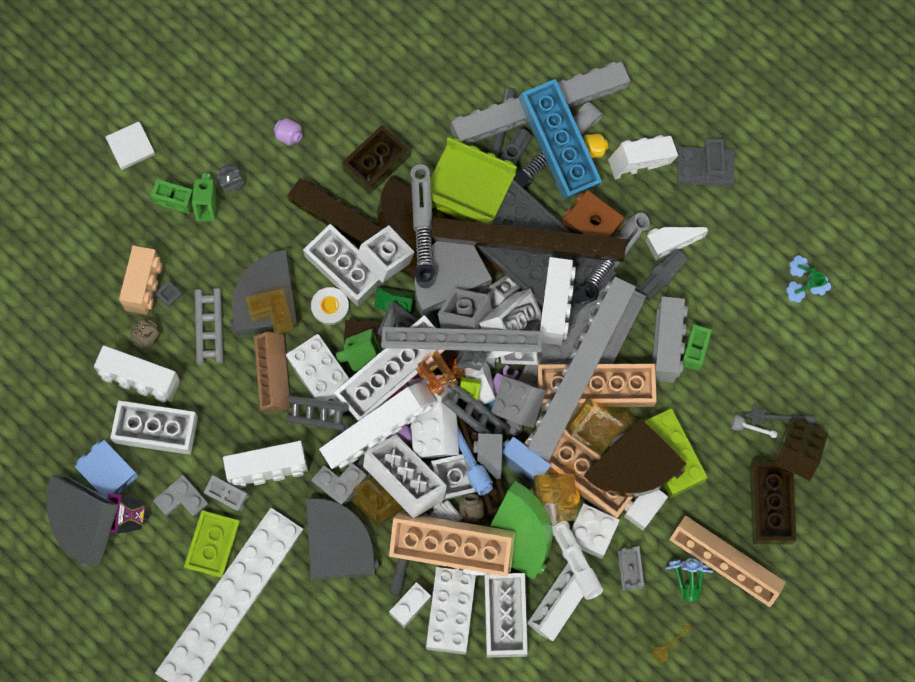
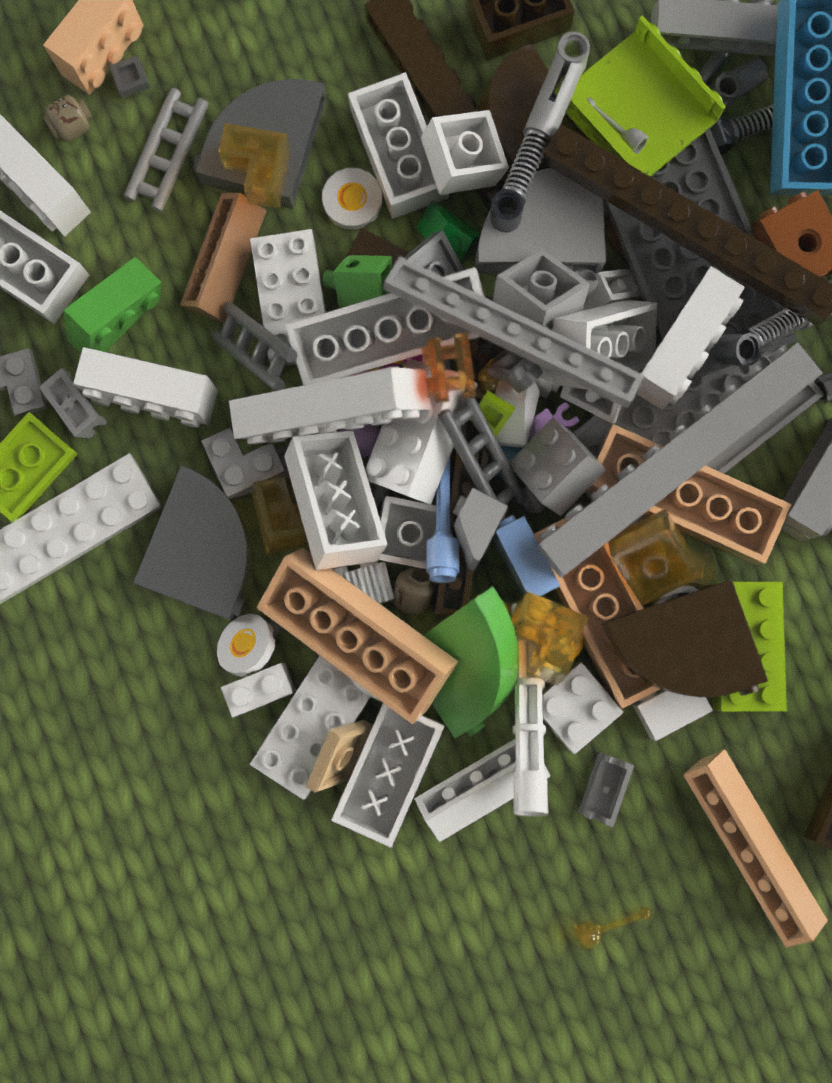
camera: 30 degrees right, 10 degrees up
(222, 430) = (111, 307): none -> bright green wedge
(390, 583) = (245, 645): none -> white tile
(474, 617) = (339, 755): none -> tan tile
(475, 204) = (633, 137): none -> light grey hinge
(691, 590) = (703, 839): plant -> none

